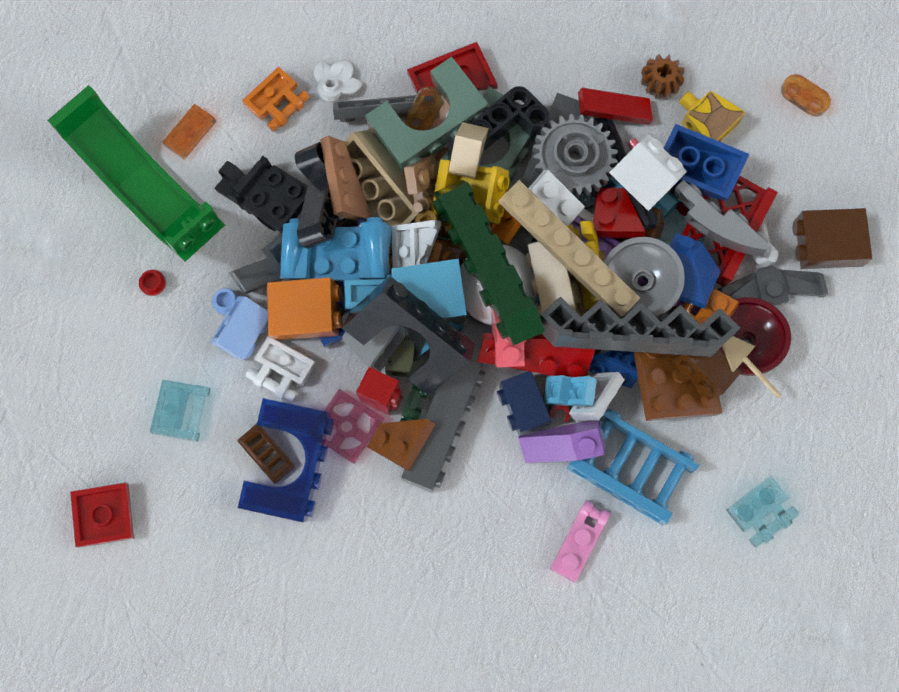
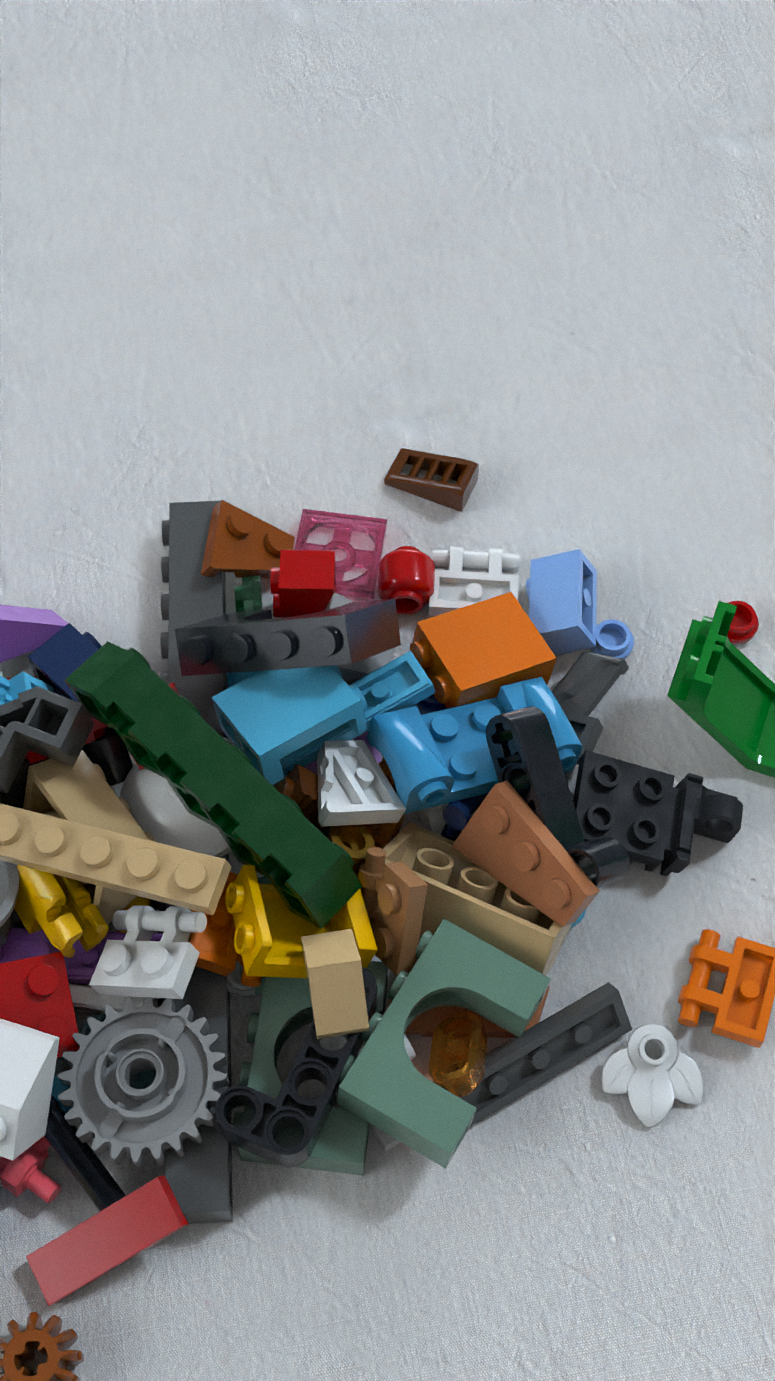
camera: 155 degrees right, 15 degrees down
(102, 515) = (604, 328): red plate -> none
(171, 410) = (596, 478): clear light blue plate -> none
(295, 499) = (390, 510): clear blue arch -> none
(318, 385) = (408, 578): none -> red head
(469, 60) = (434, 1204): red wing -> none

